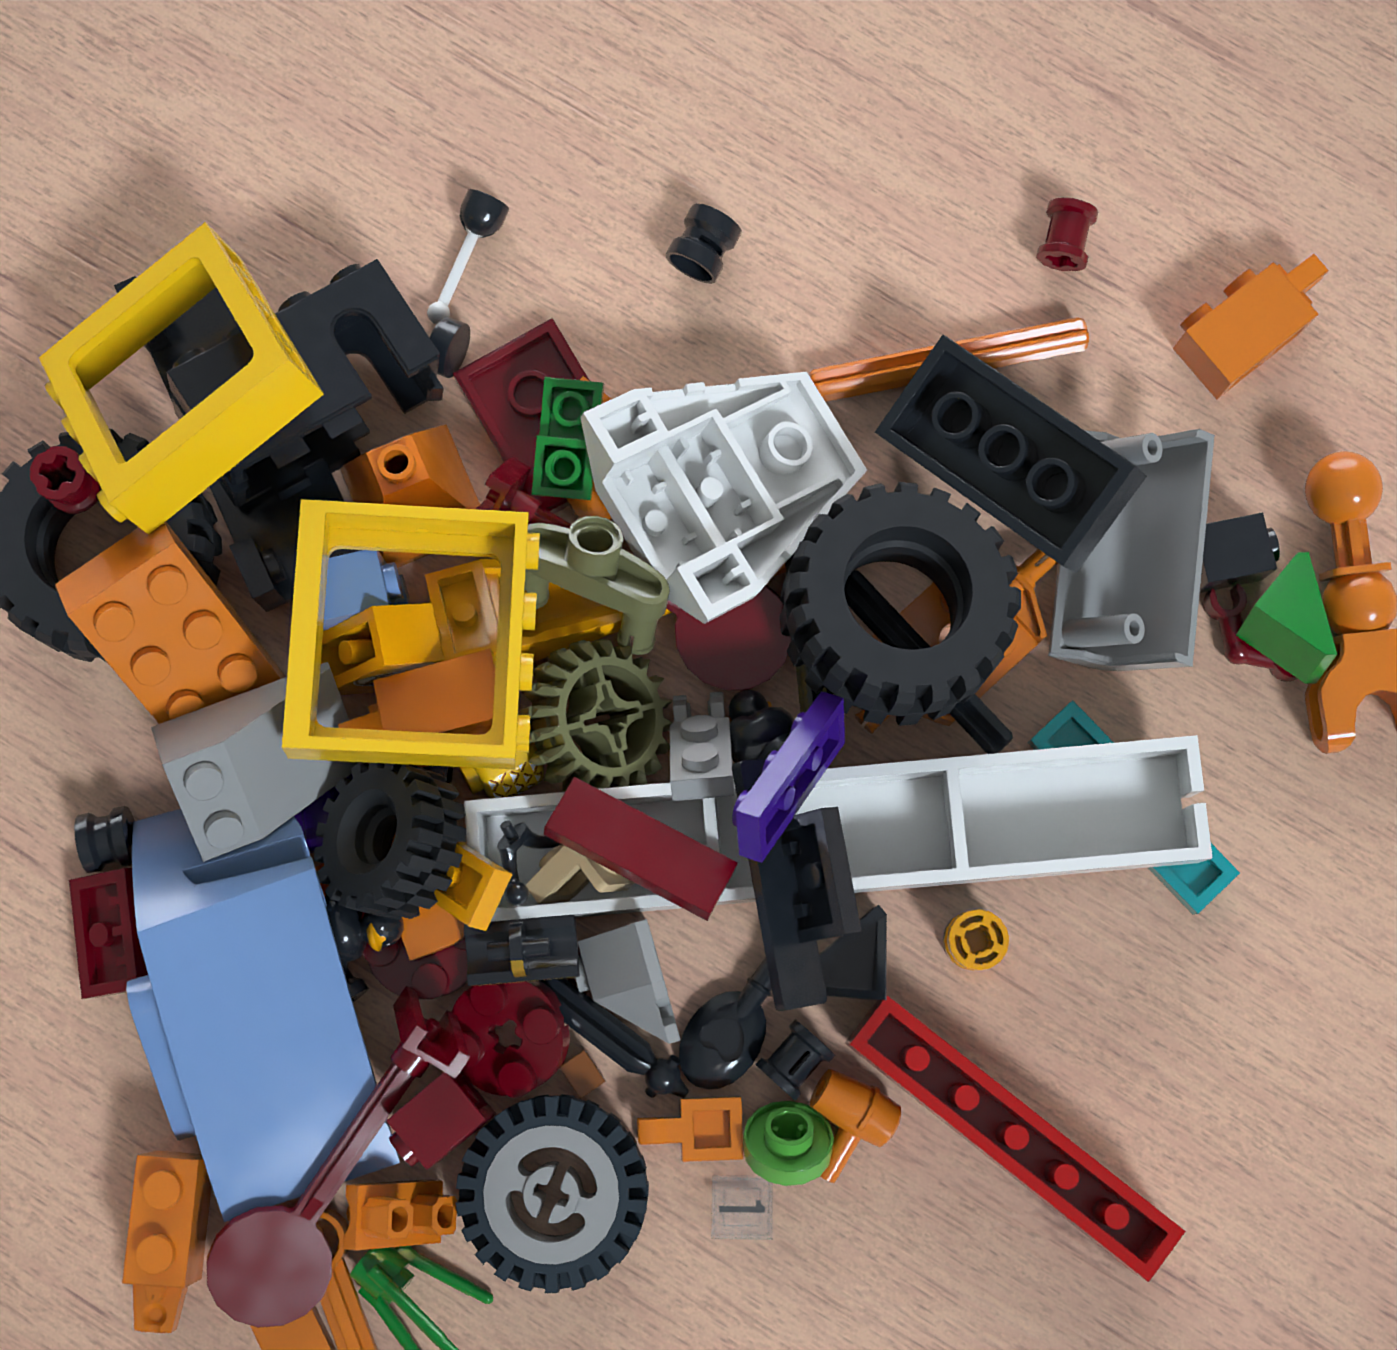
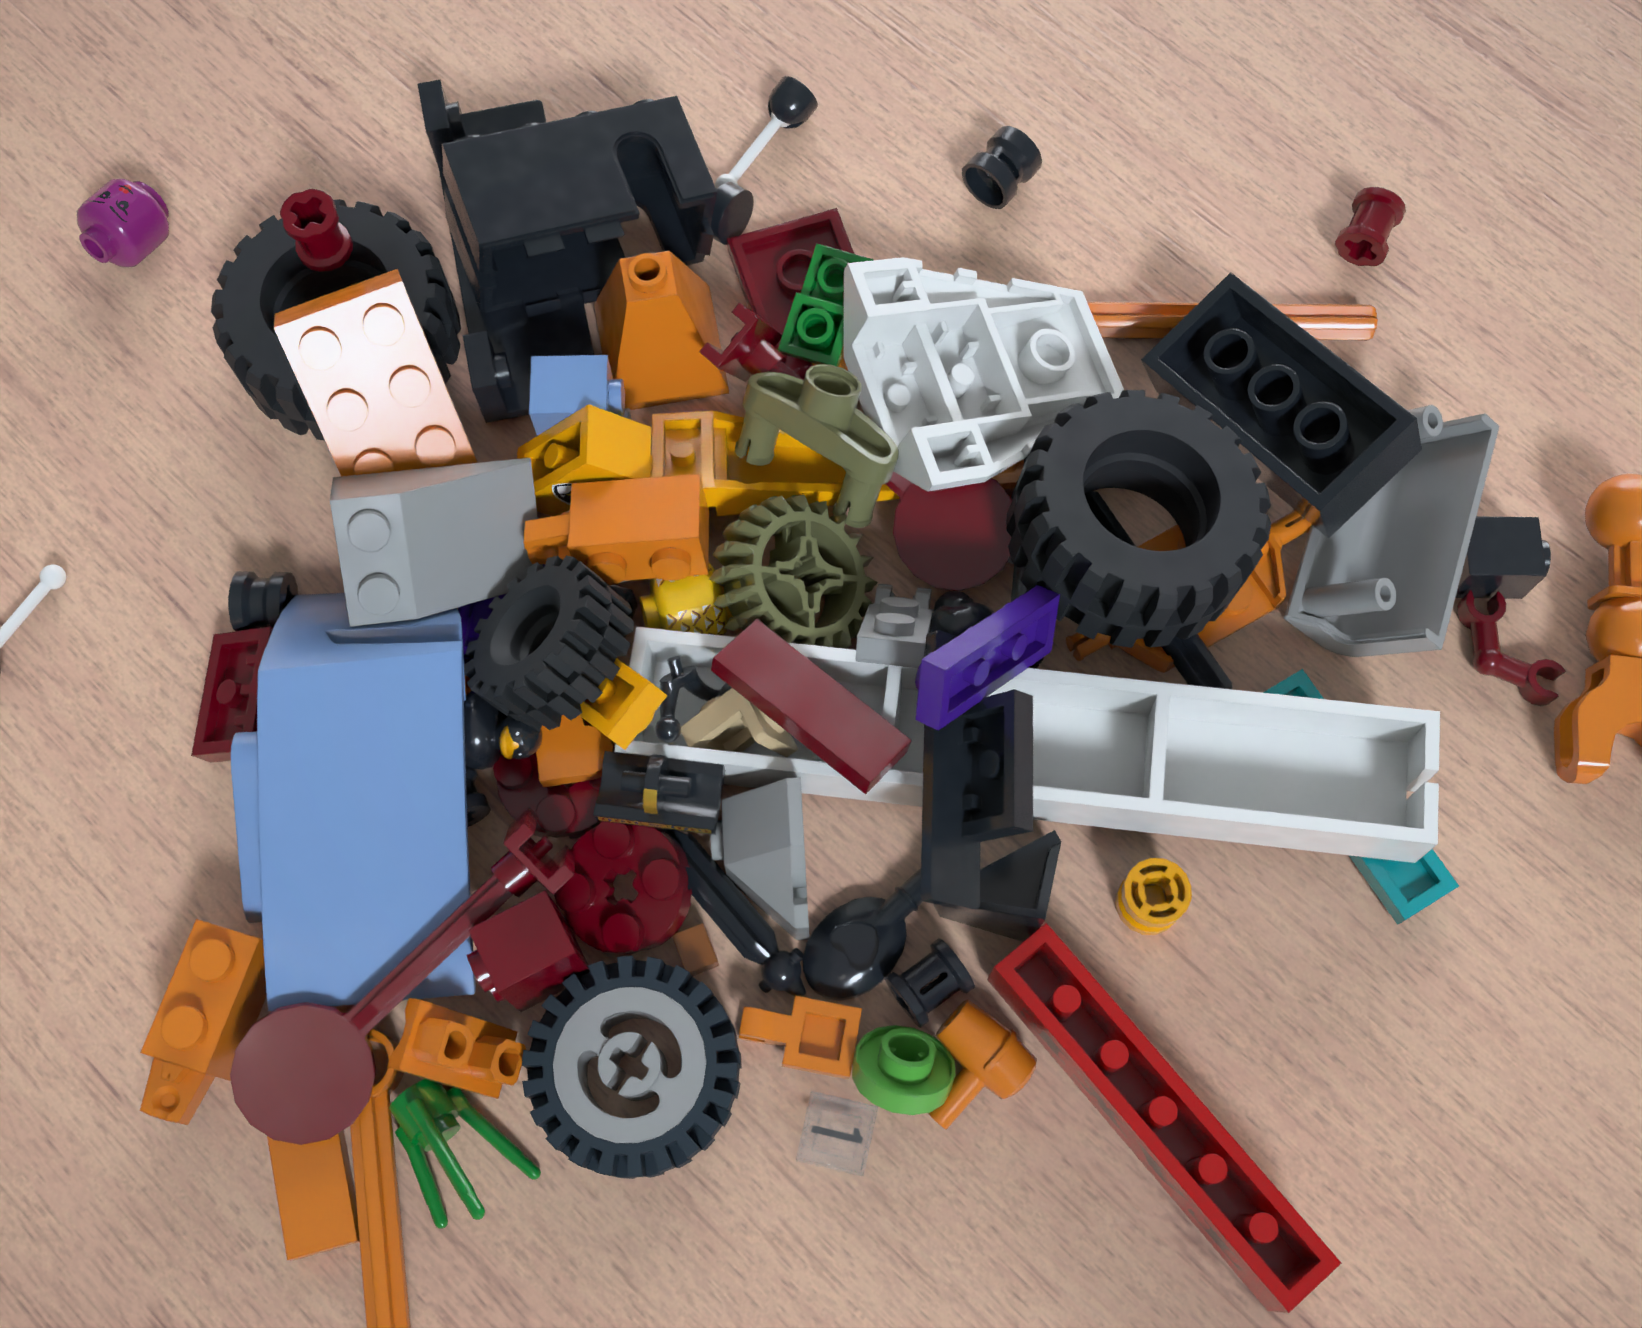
camera: 15 degrees right, 10 degrees down
(217, 430) = (465, 188): yellow piece -> none
(410, 529) = (643, 333): yellow piece -> none
(1249, 325) = (1546, 343): orange hinge -> none
(1292, 623) = (1554, 636): green slope -> none

